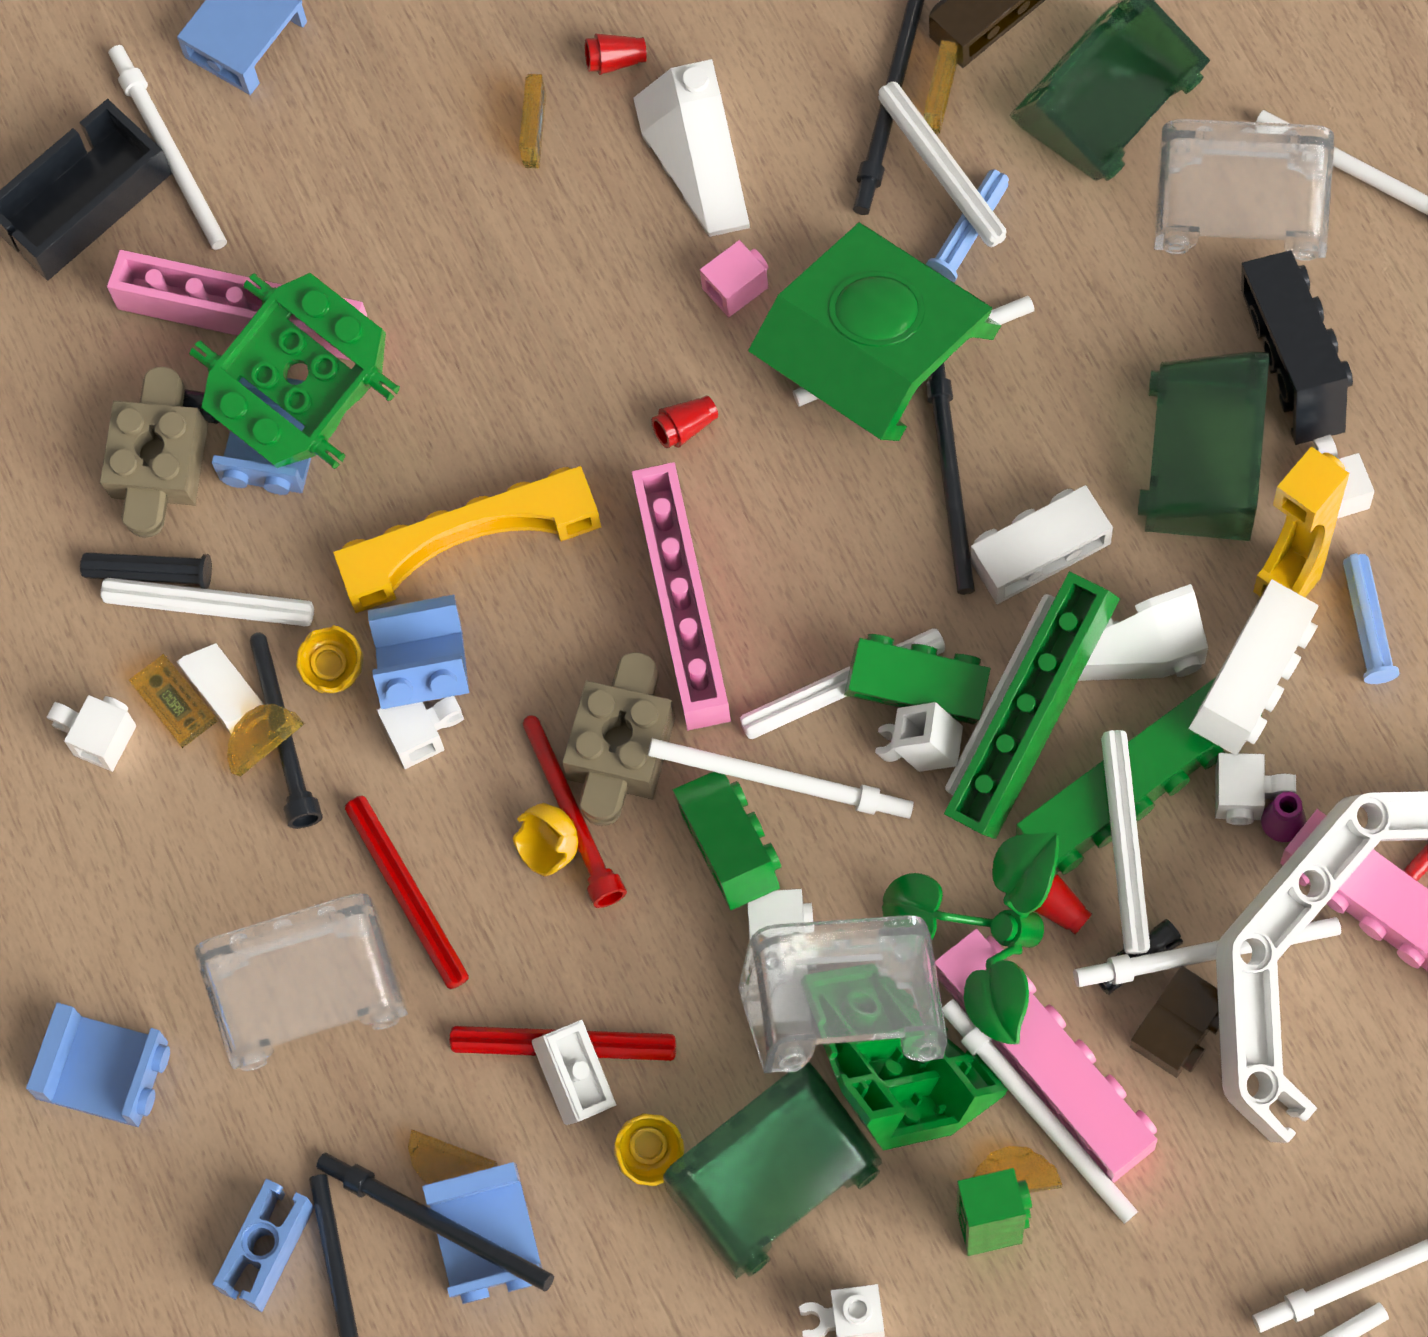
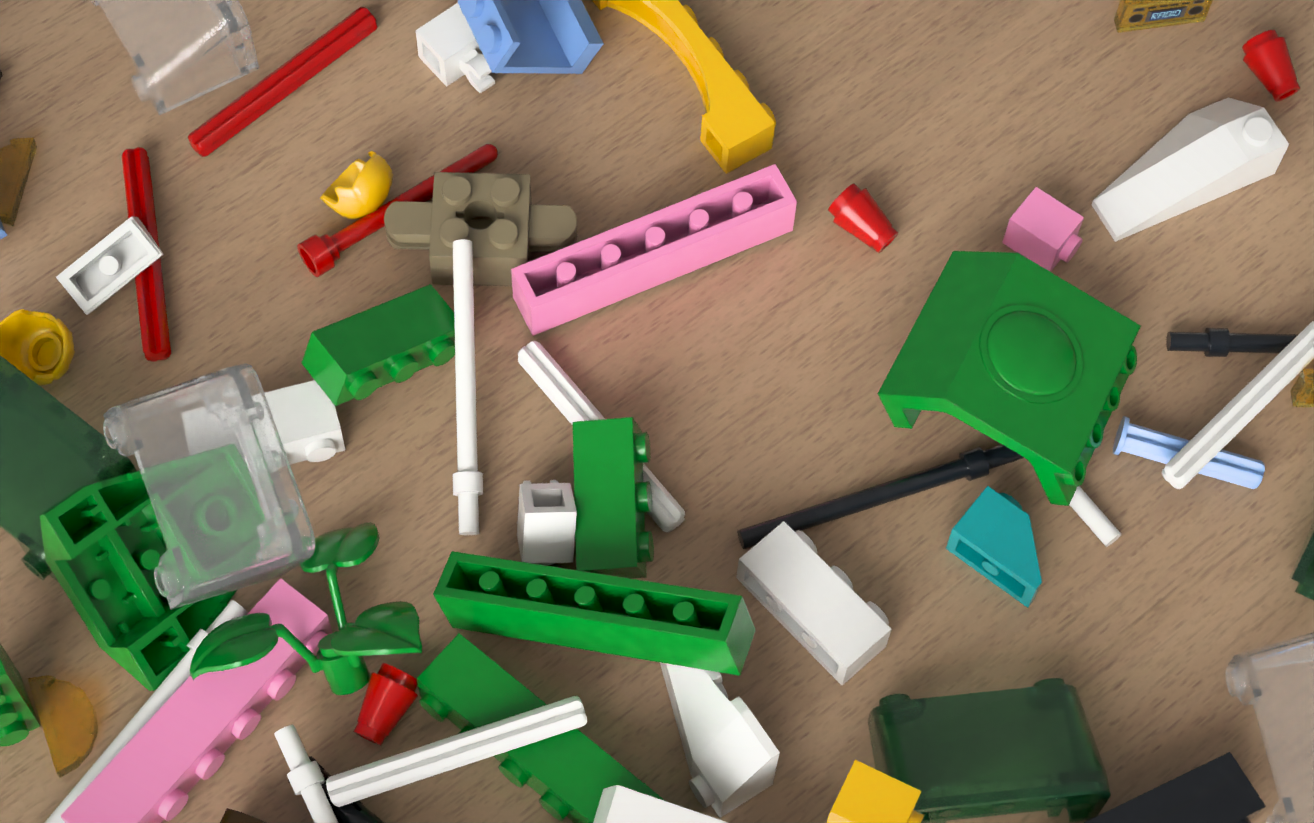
camera: 65 degrees right, 5 degrees down
(1020, 387) = (999, 544): none -> teal slope

